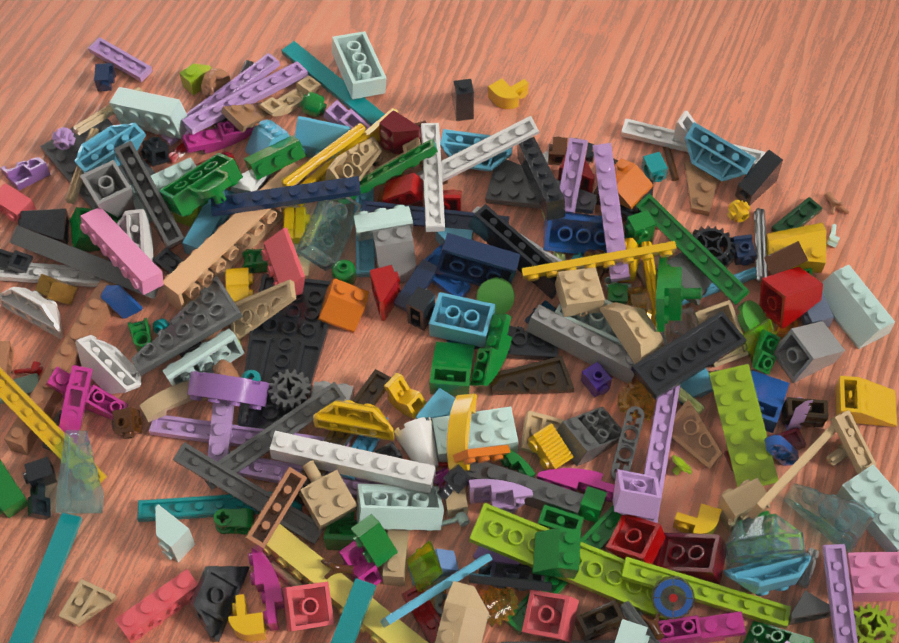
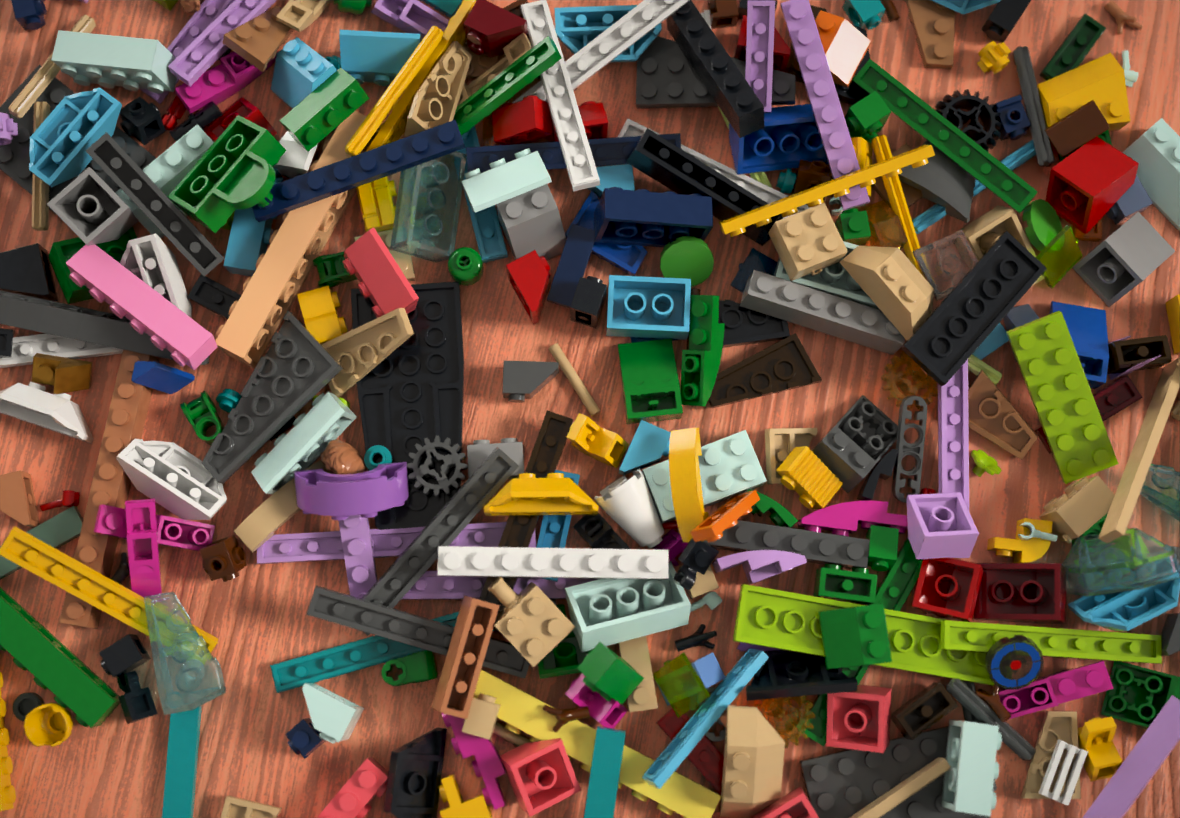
camera: 15 degrees left, 20 degrees up
(148, 551) = (304, 738): none -> dark blue brick
(197, 157) = (202, 118): none -> black pin
(275, 555) = (482, 716): none -> tan brick
(343, 305) = (478, 318): orange slope -> none
(368, 350) = (526, 378): none -> dark grey slope
(400, 359) = (574, 380): none -> tan bar
(446, 543) = (696, 639): none -> black bar
(596, 380) = (849, 360): dark purple brick -> none
(603, 455) = (882, 470): none -> black slope
(671, 294) = (934, 220): green brick -> none
(704, 512) = (1036, 533): none -> light aqua hand
(763, 355) = (1065, 277): green slope -> none
(781, 450) = (1118, 421): blue beam -> none

